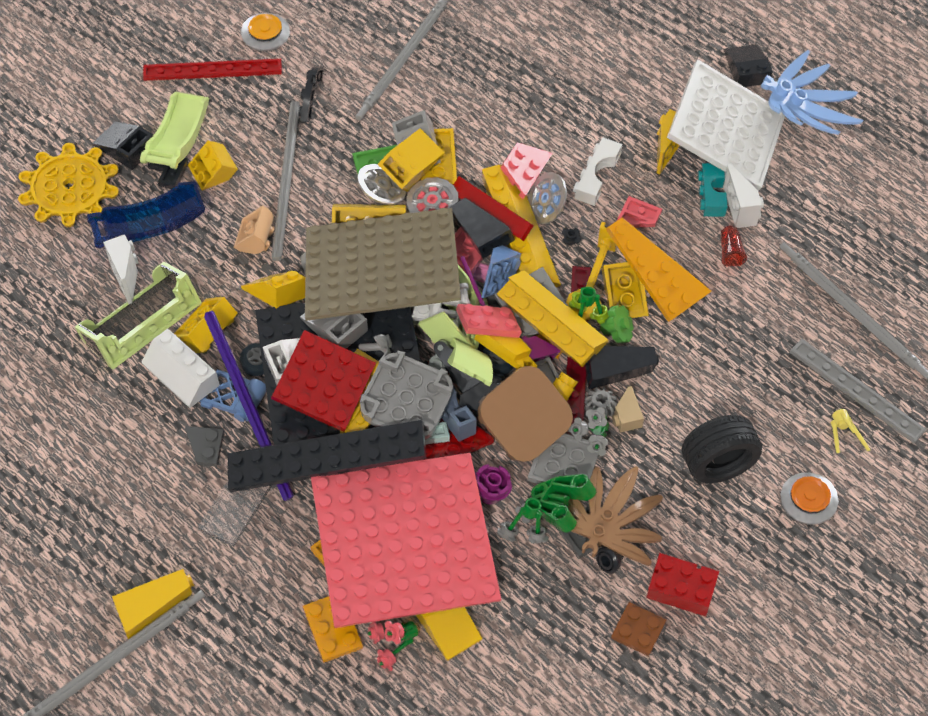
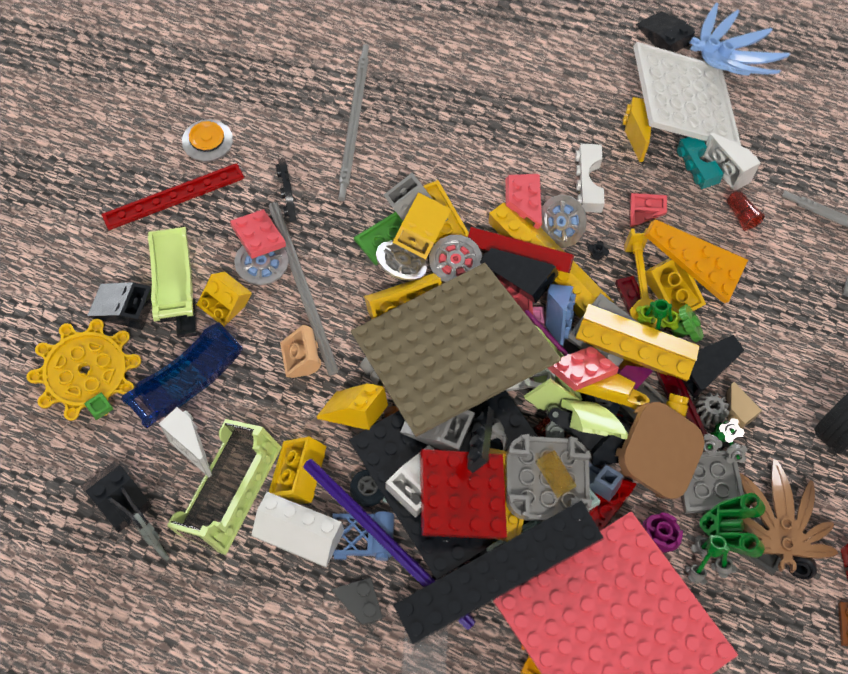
camera: 25 degrees left, 5 degrees up
(47, 298) = (122, 503): none -> black slope
(65, 216) = (98, 406): none -> bright green tile
(260, 146) = (262, 269): none -> flat silver piece
(267, 122) = (258, 233): none -> coral plate
(359, 339) = (480, 439): none -> black plate
(413, 394) = (556, 474): none -> clear yellow plate

